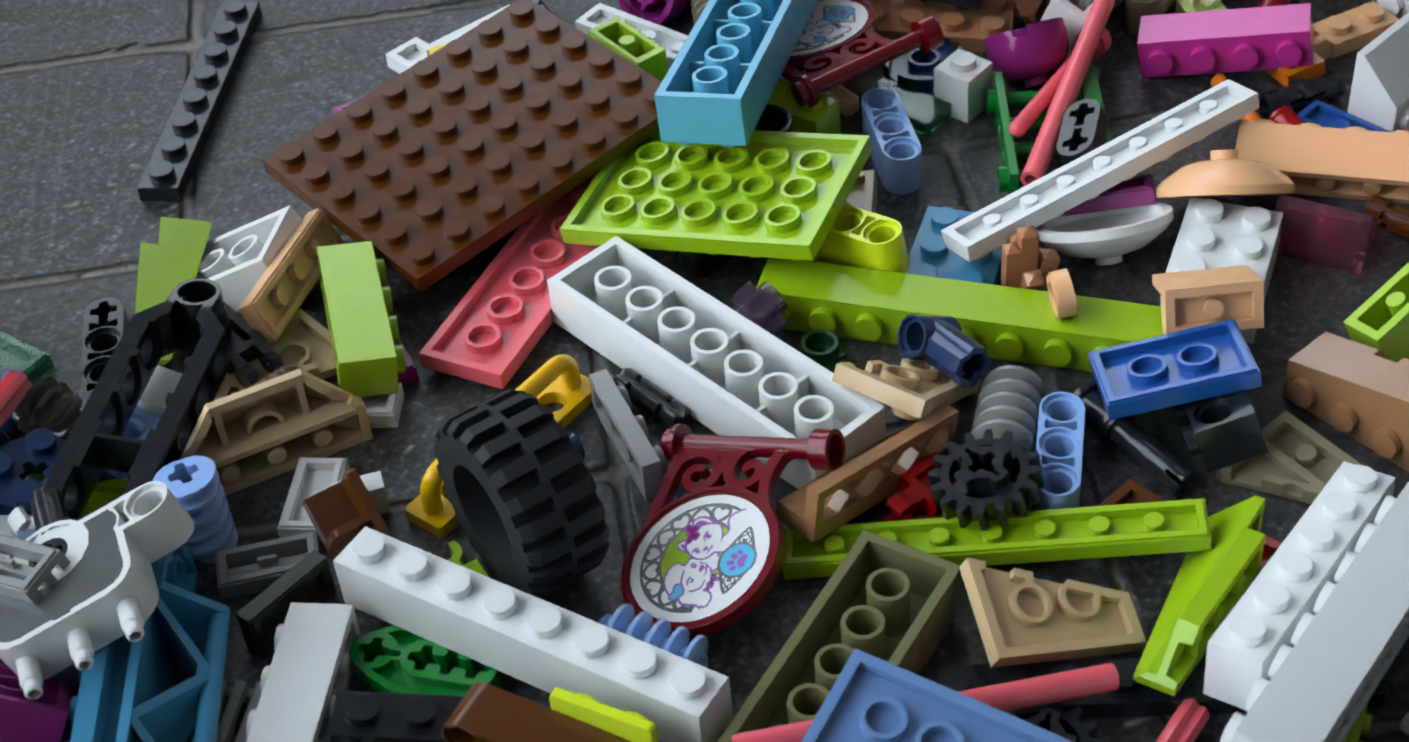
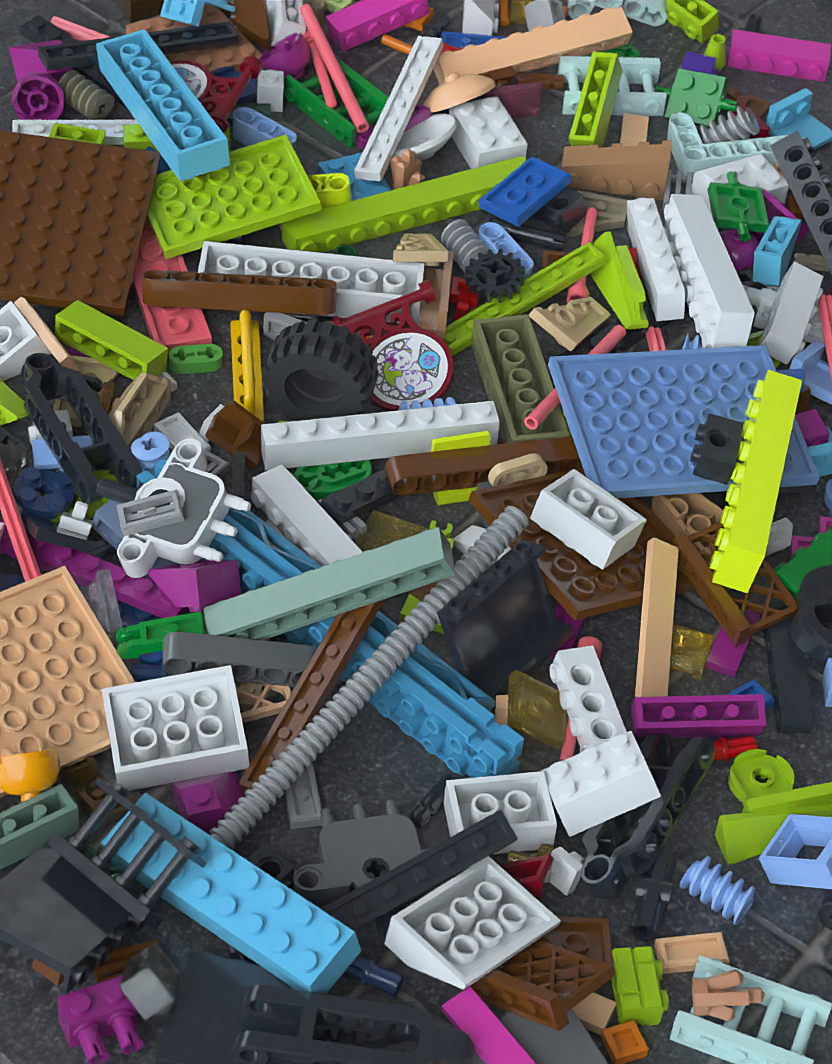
camera: 50 degrees left, 5 degrees up
(453, 391) = (195, 358): none -> bright green beam
(584, 329) = (239, 292): none -> reddish brown beam
(761, 306) = (310, 242): clear purple gear -> none
(944, 346) = (419, 226): dark blue piece -> none
(1061, 293) = (446, 176): light nougat tile -> none
(1081, 130) = (371, 91): black beam -> none
(1128, 574) = (579, 289): none -> coral piece
(1210, 297) = (512, 150): light nougat panel -> none
(1333, 191) = (502, 76): none -> reddish brown plate

